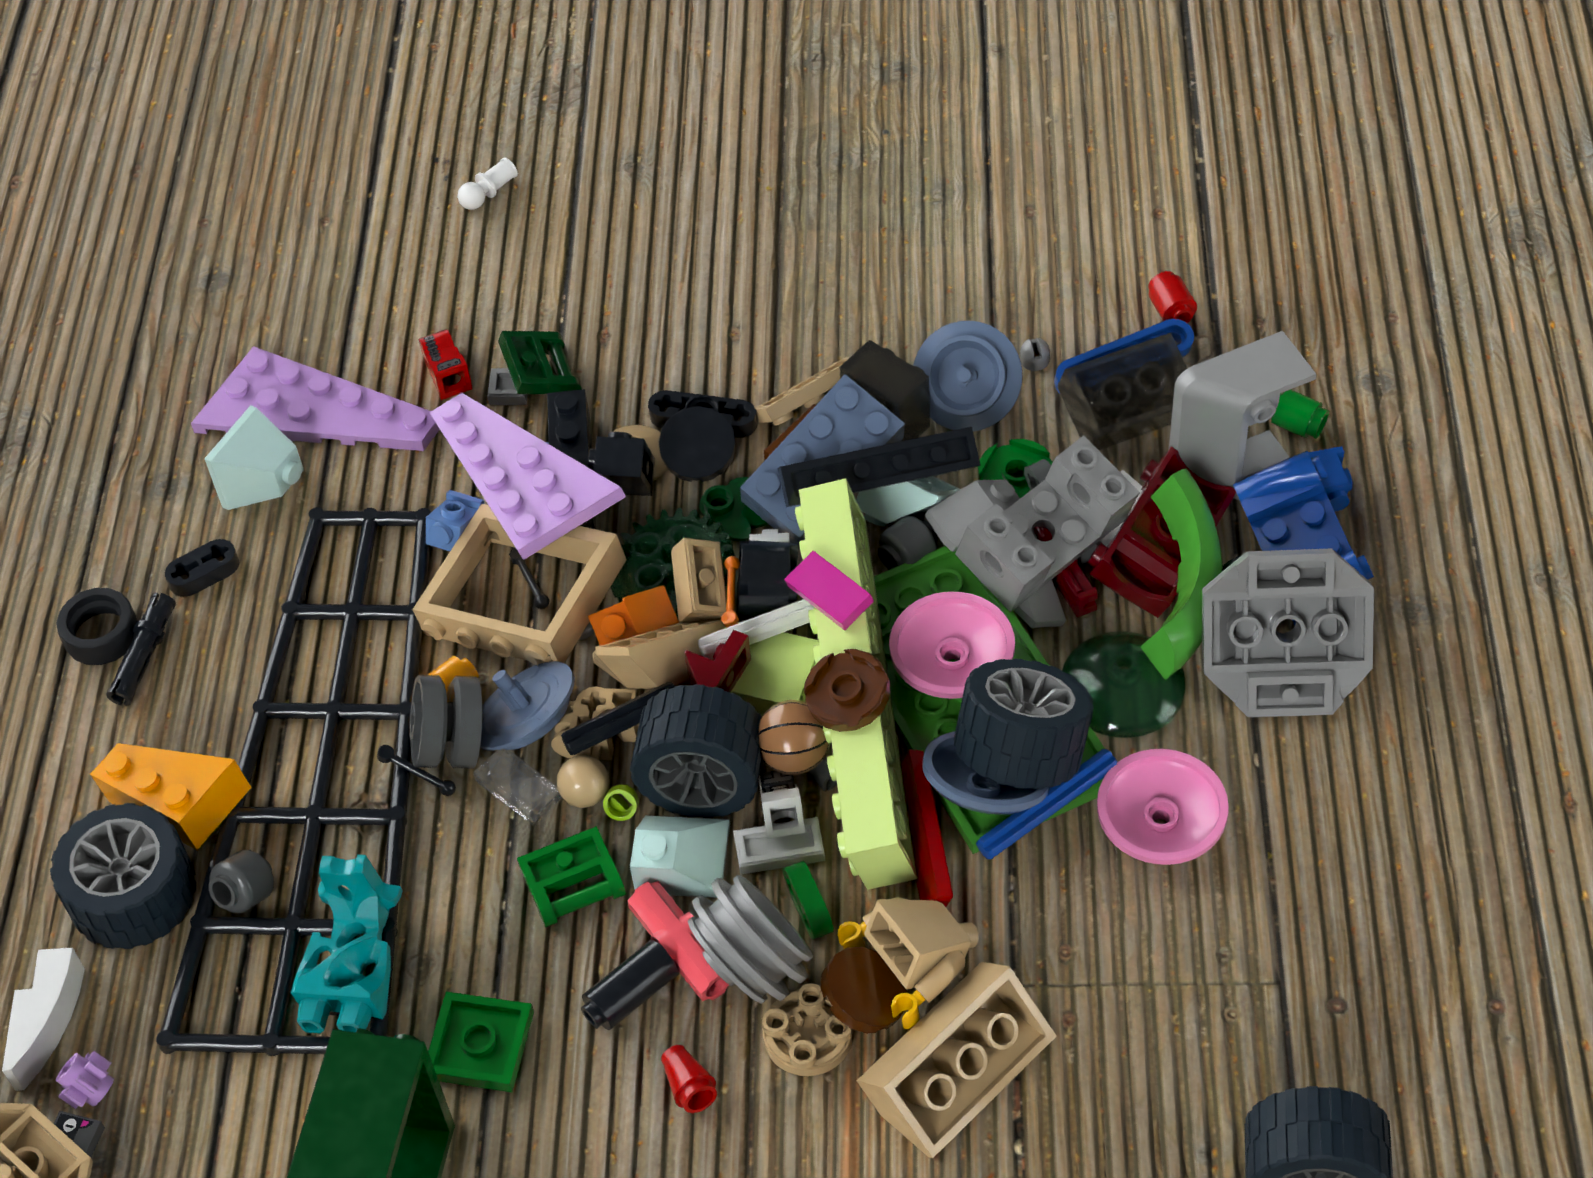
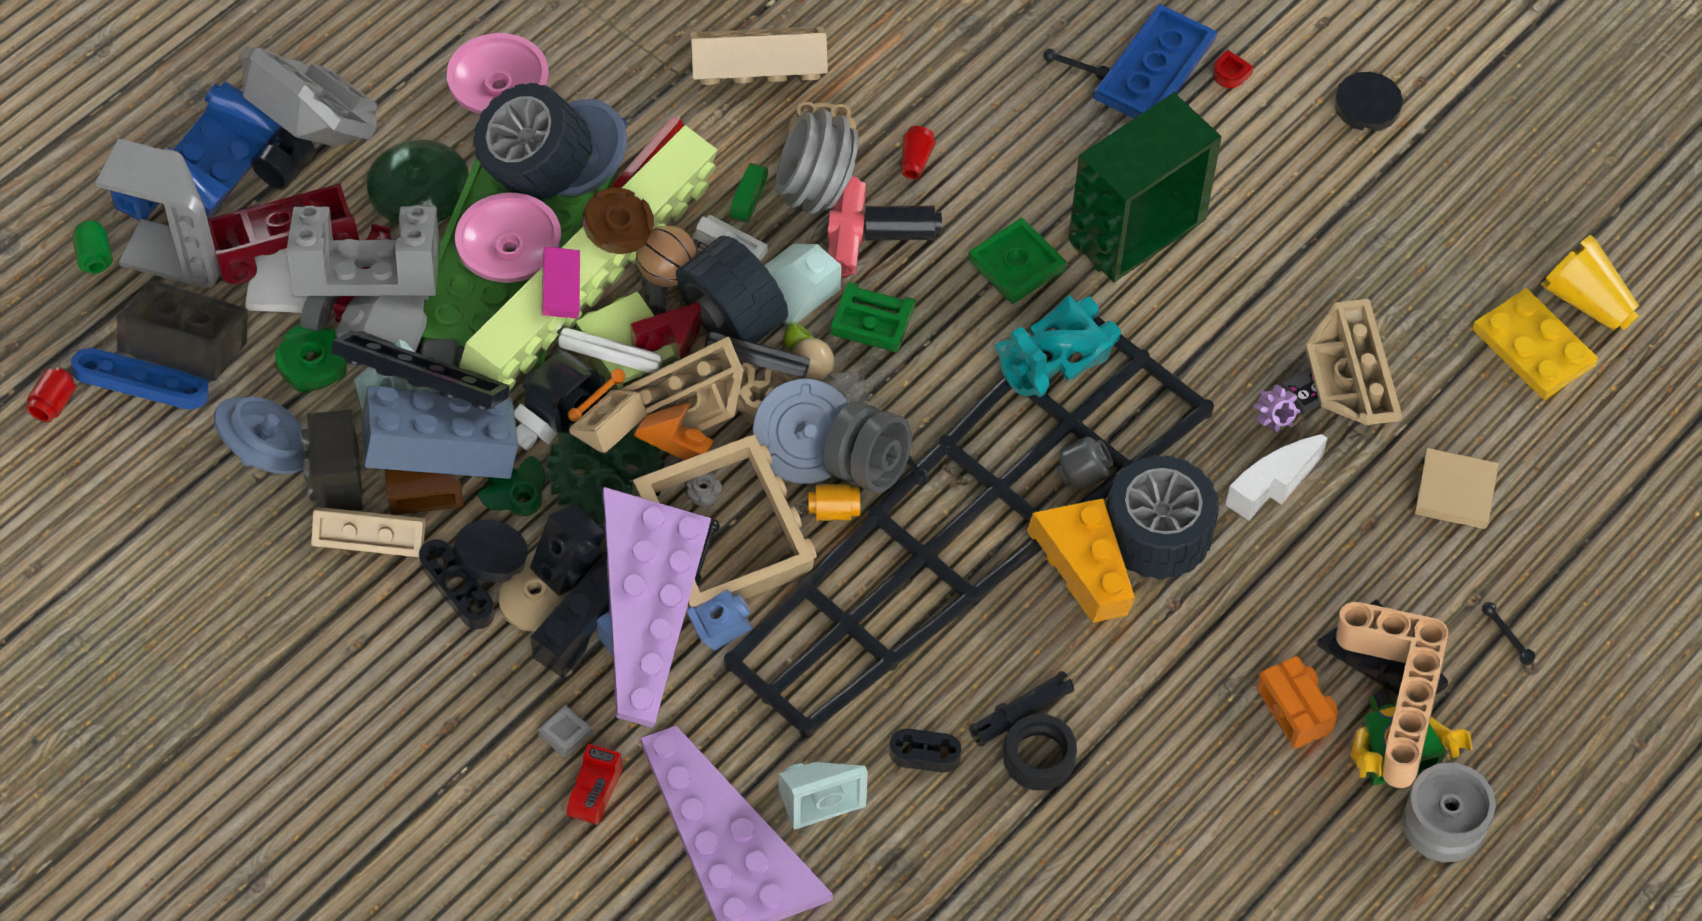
camera: 145 degrees left, 5 degrees up
(528, 363) = (530, 716): dark green plate -> none
(861, 989) = (772, 115): reddish brown tile -> none
(918, 944) = (719, 108): tan torso -> none
(1027, 354) = (190, 443): light grey hinge -> none
(1201, 562) = (311, 172): bright green brick -> none

